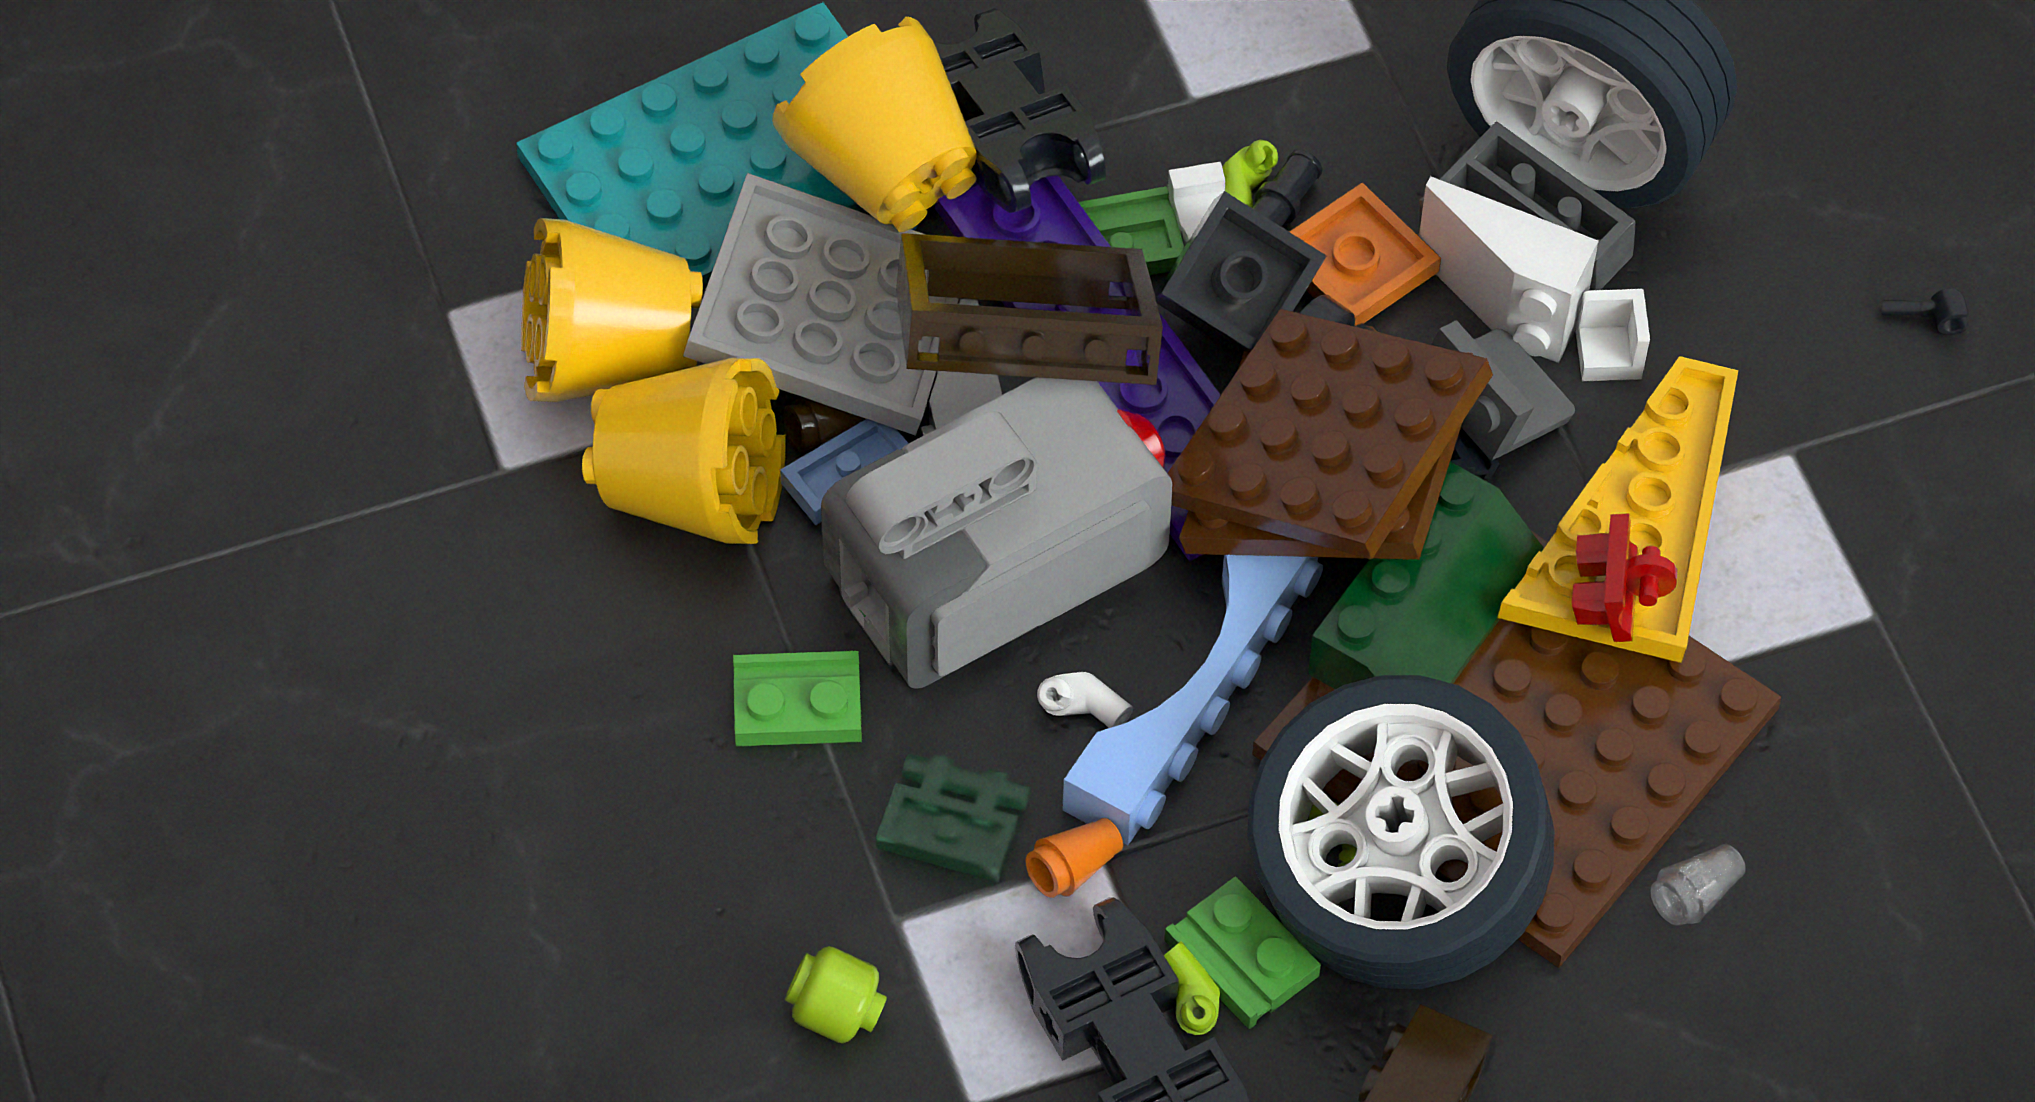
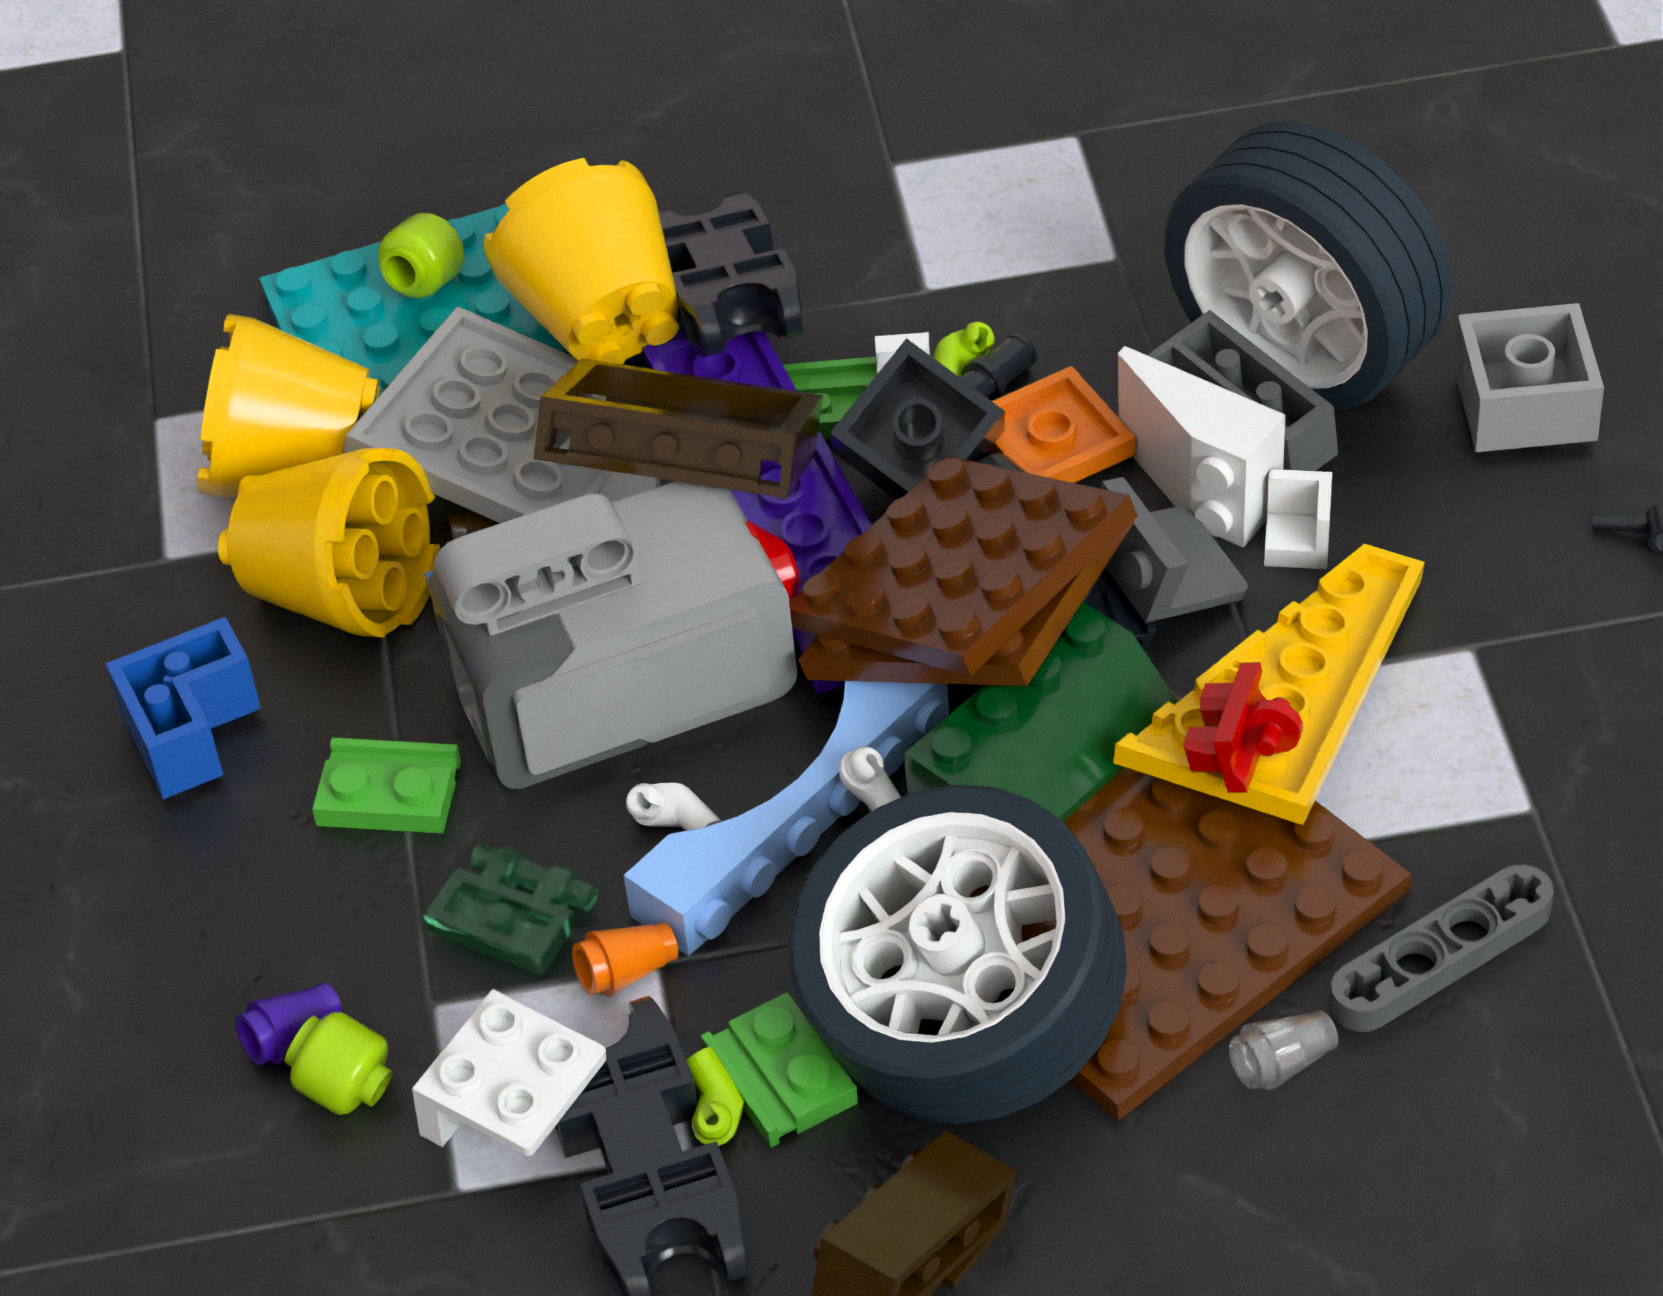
camera: 15 degrees right, 10 degrees down
(572, 637) = (175, 697): none -> blue brick
(691, 114) = (420, 255): none -> lime head
(769, 959) = (274, 1021): none -> dark purple cone
(1006, 994) = (505, 1076): none -> white bracket
(1270, 656) = (865, 777): none -> white arm
(1803, 163) = (1528, 377): none -> light grey brick
(1815, 762) = (1435, 940): none -> dark grey beam

